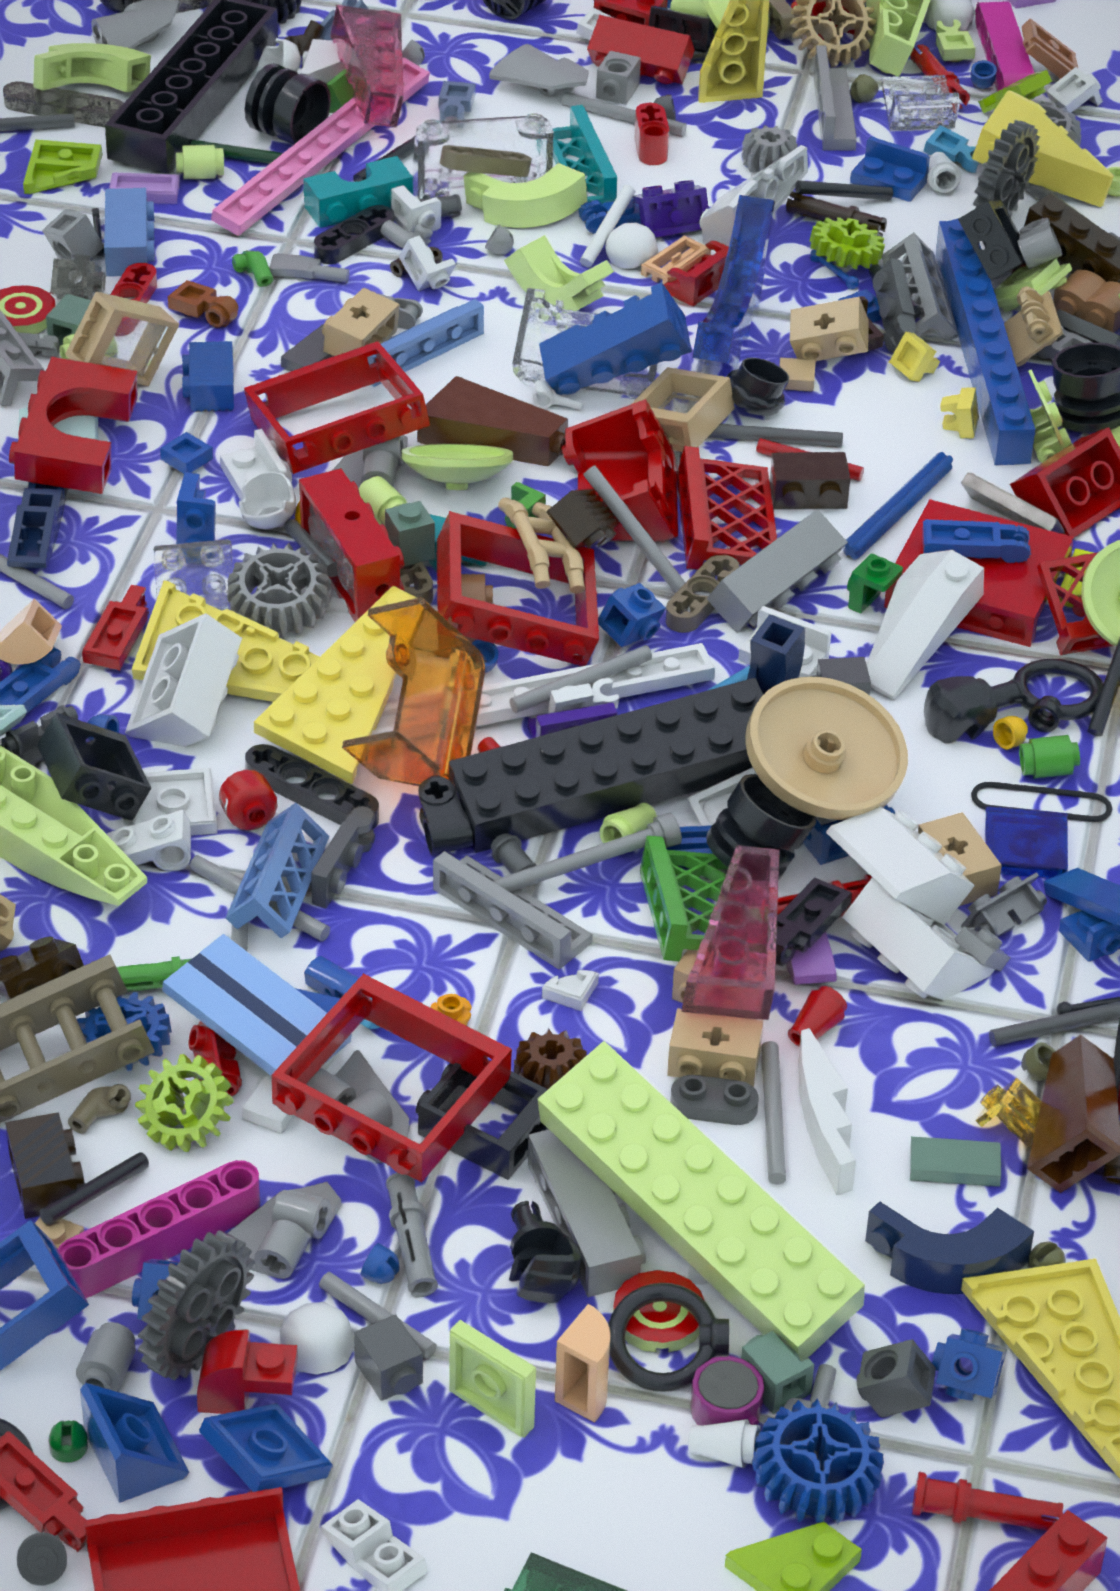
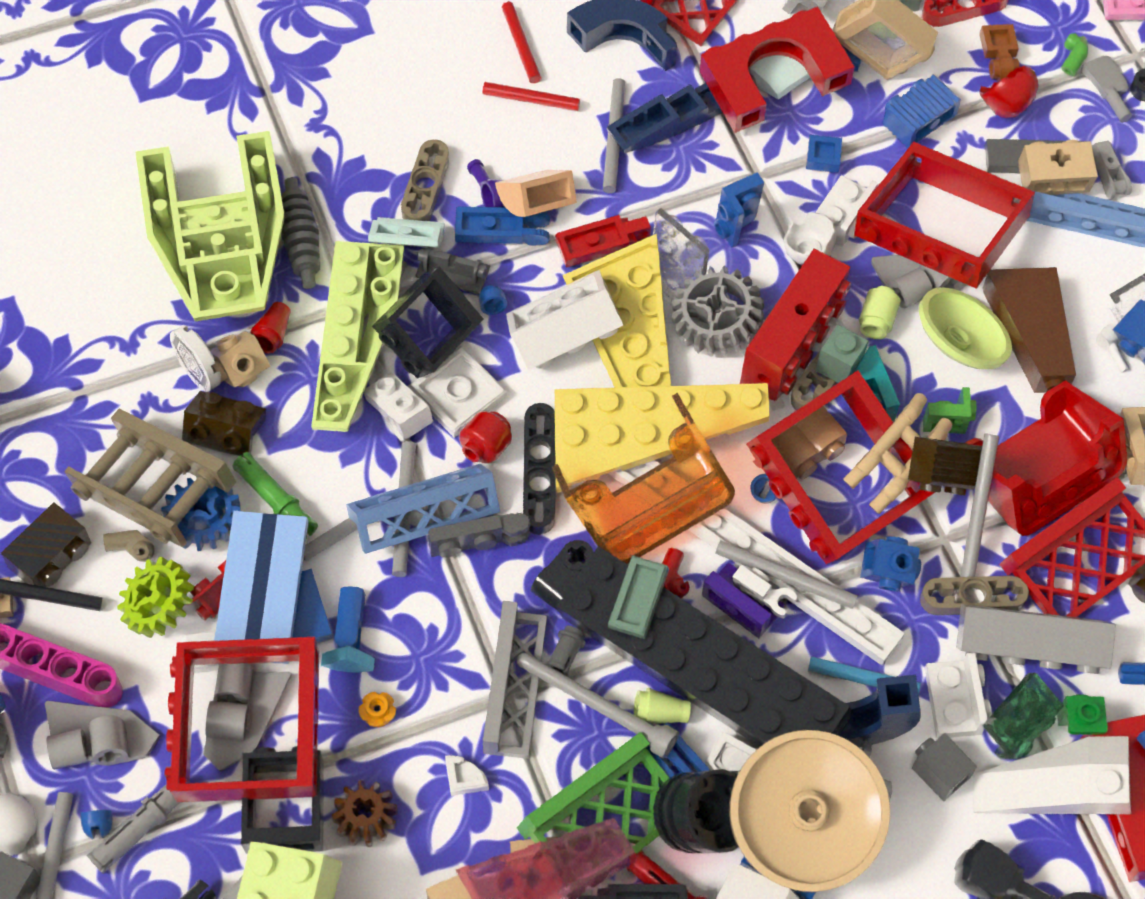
camera: 55 degrees right, 20 degrees up
(256, 313) = (1012, 93): none -> red hair
(529, 752) = (638, 597): none -> sand green tile
(845, 613) = (1022, 717): none -> clear green bracket

